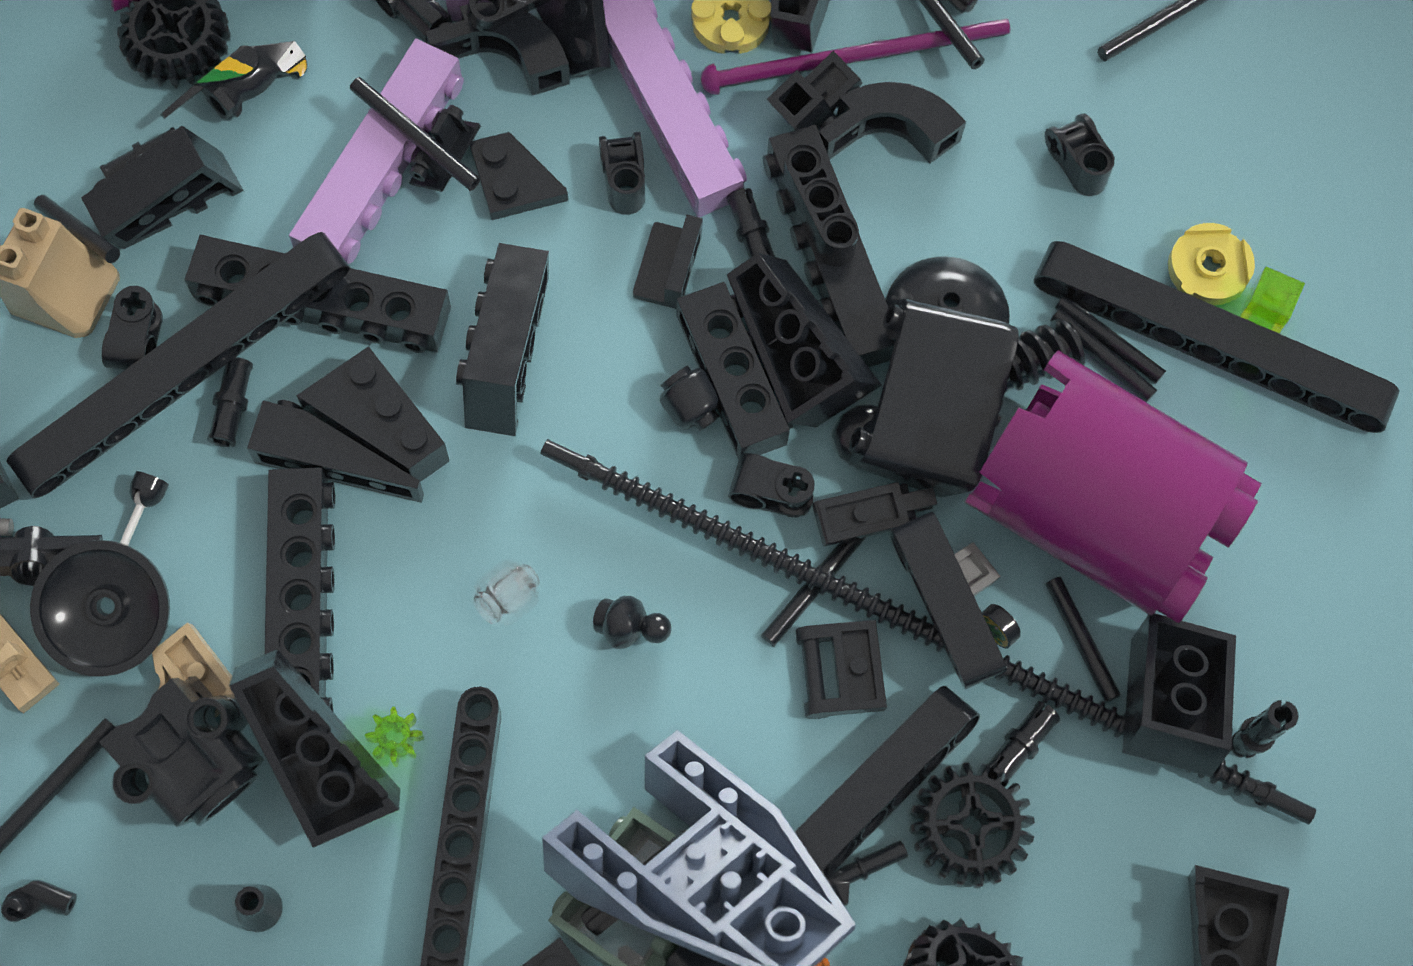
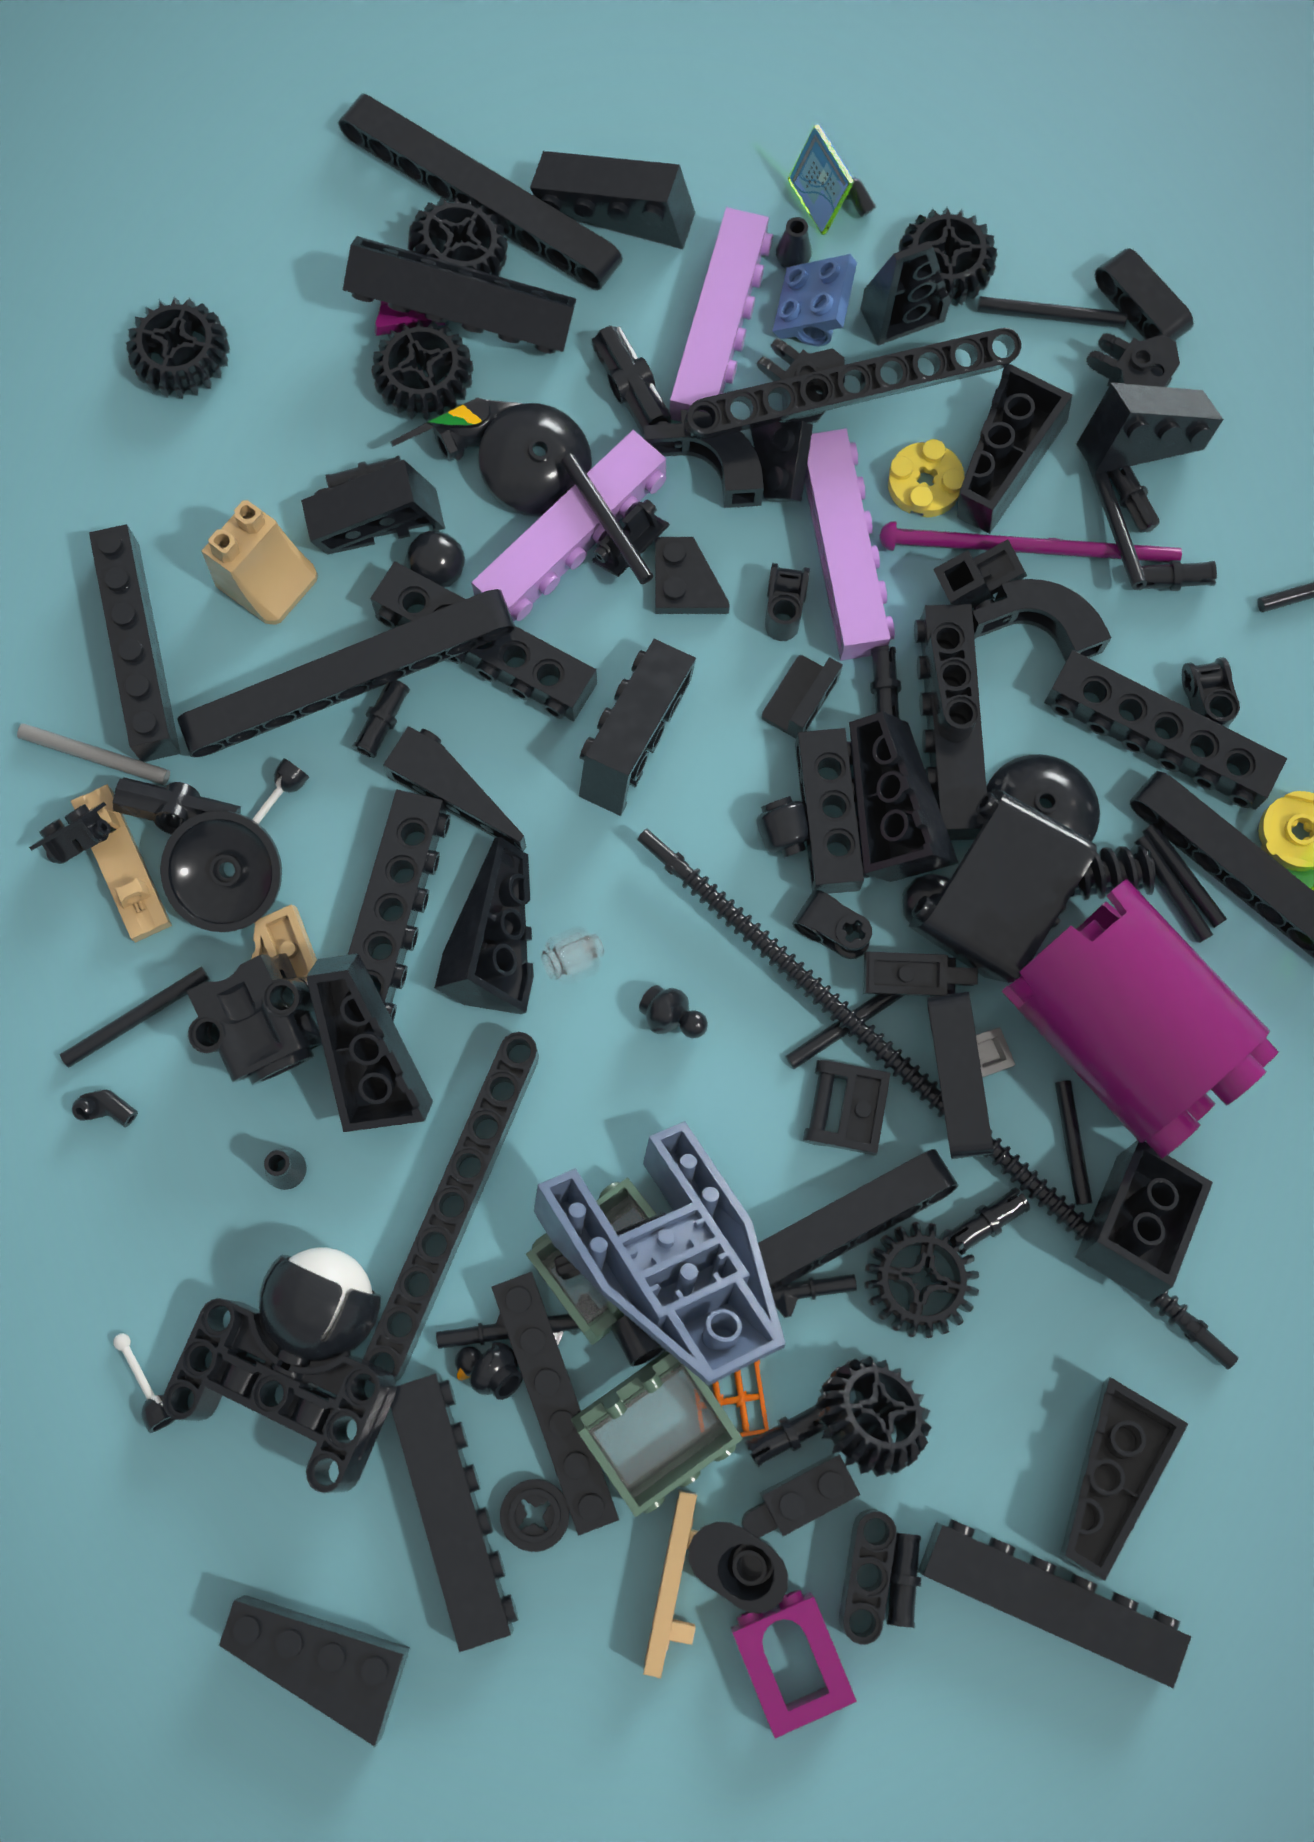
camera: 20 degrees right, 5 degrees up
(77, 228) = (291, 527): black bar -> none
(131, 335) = (310, 636): black piece -> none
(243, 220) = (436, 557): none -> black hair
(300, 110) = (512, 469): none -> black dish
(376, 412) = (502, 763): black wedge -> none
(392, 748) = (429, 1055): clear neon green gear -> none
(413, 611) = (488, 946): none -> black wedge
(1002, 625) = (1001, 1109): black tile -> none
(1012, 45) = (1180, 575): none -> black pin
(1065, 191) = (1185, 728): none -> black brick
(1260, 732) = (1210, 1275): black pin -> none

